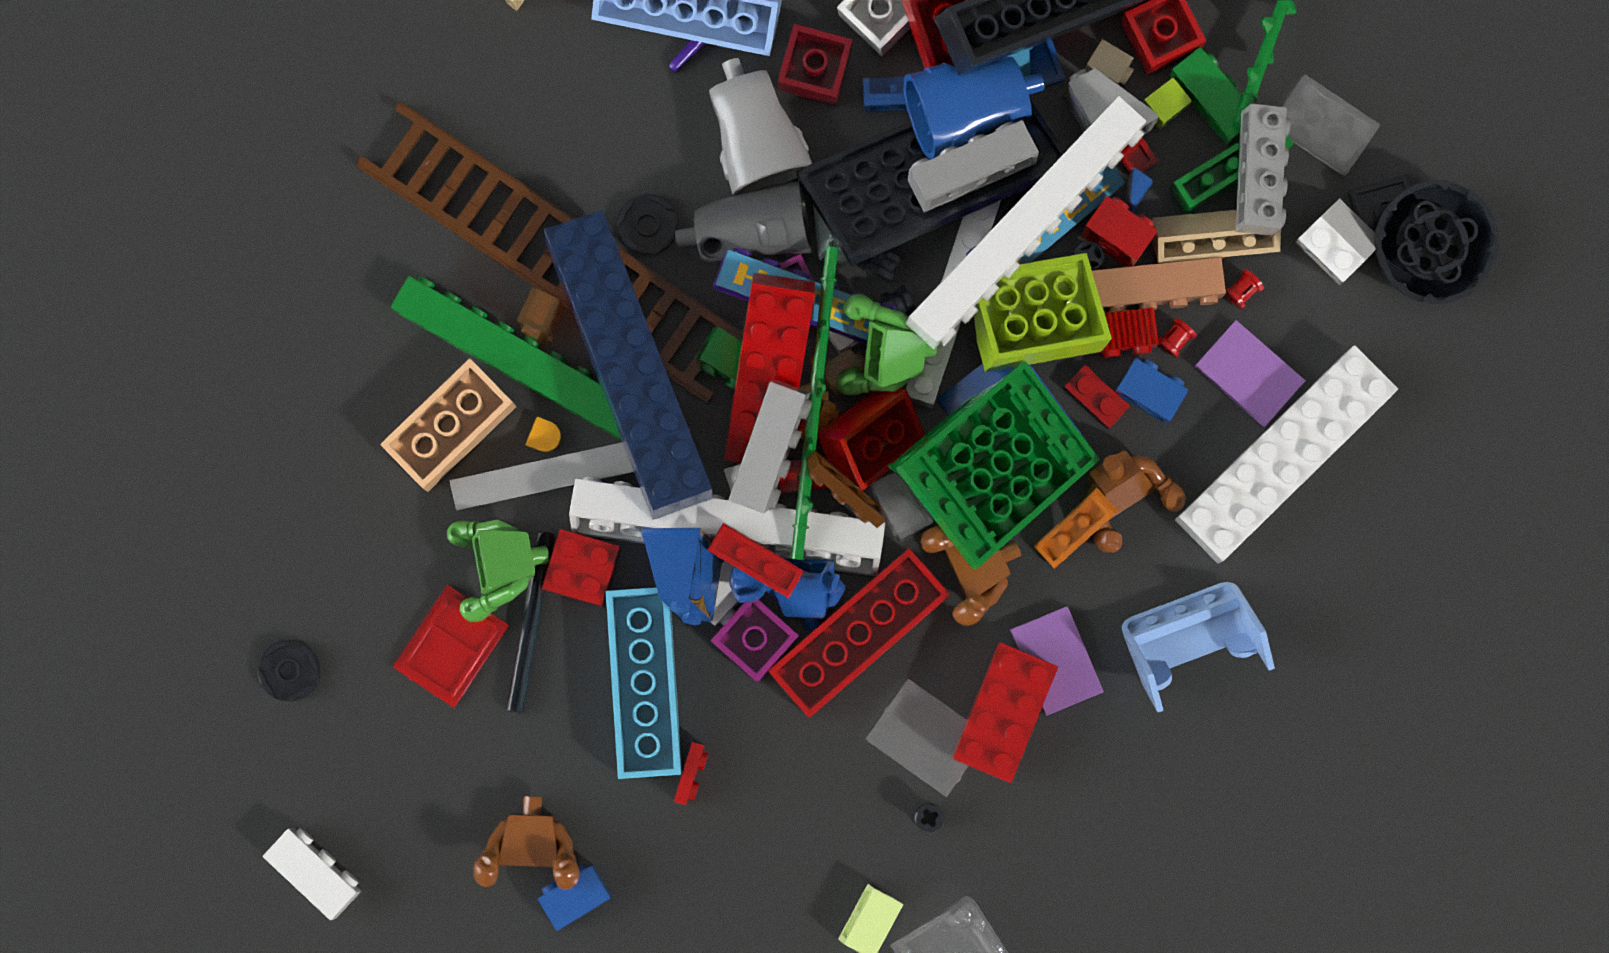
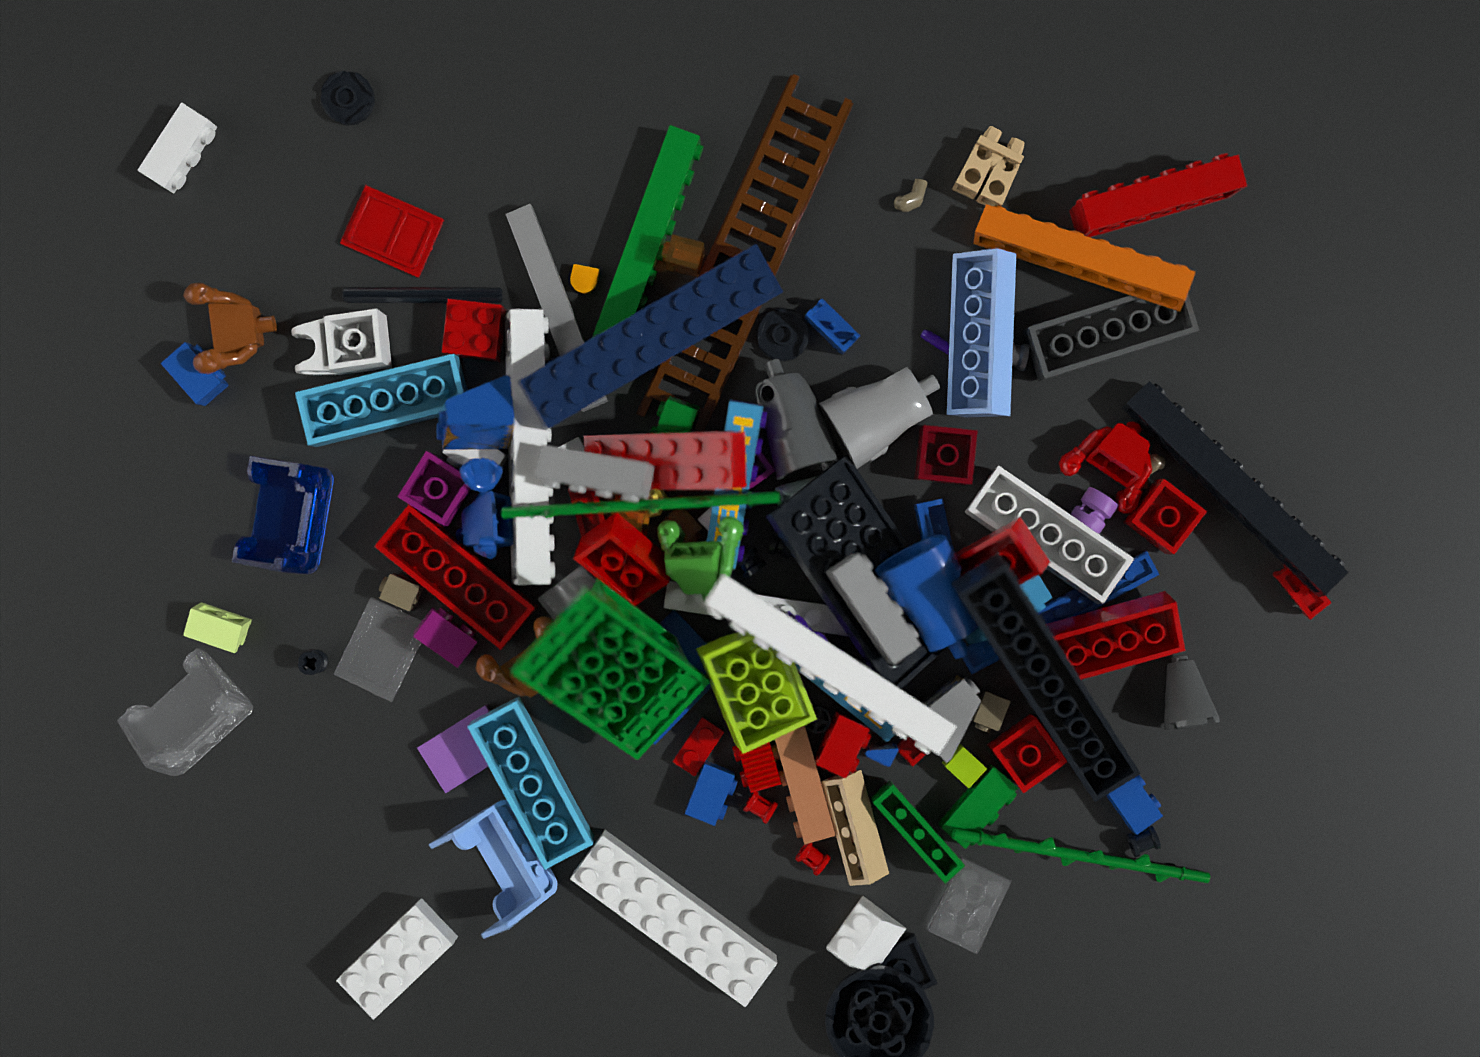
camera: 80 degrees right, 5 degrees up
(448, 425) = (576, 193): light nougat brick -> none
(502, 561) = (466, 260): bright green torso -> none
(521, 54) = (911, 200): none -> dark tan arm
(565, 728) = (337, 339): none -> white brick
(648, 167) = (831, 326): none -> blue hinge
(695, 761) = (304, 453): red plate -> none
(755, 560) = (496, 477): red tile -> none
(755, 820) = (288, 516): none -> clear blue windscreen
(845, 490) = (568, 544): reddish brown plate -> none
(864, 703) = (400, 591): none -> dark tan brick
(924, 659) = (445, 636): none -> magenta brick
(1004, 712) = (408, 712): red brick -> none
(1075, 528) = (578, 748): orange tile -> none
(1106, 587) = (531, 782): none -> medium azure brick
(1125, 482) = (622, 779): dark orange torso -> none
(1250, 373) = (741, 874): medium lavender tile -> none
(1262, 169) = (915, 861): light grey brick -> none
(1284, 777) = (397, 958): none -> white brick

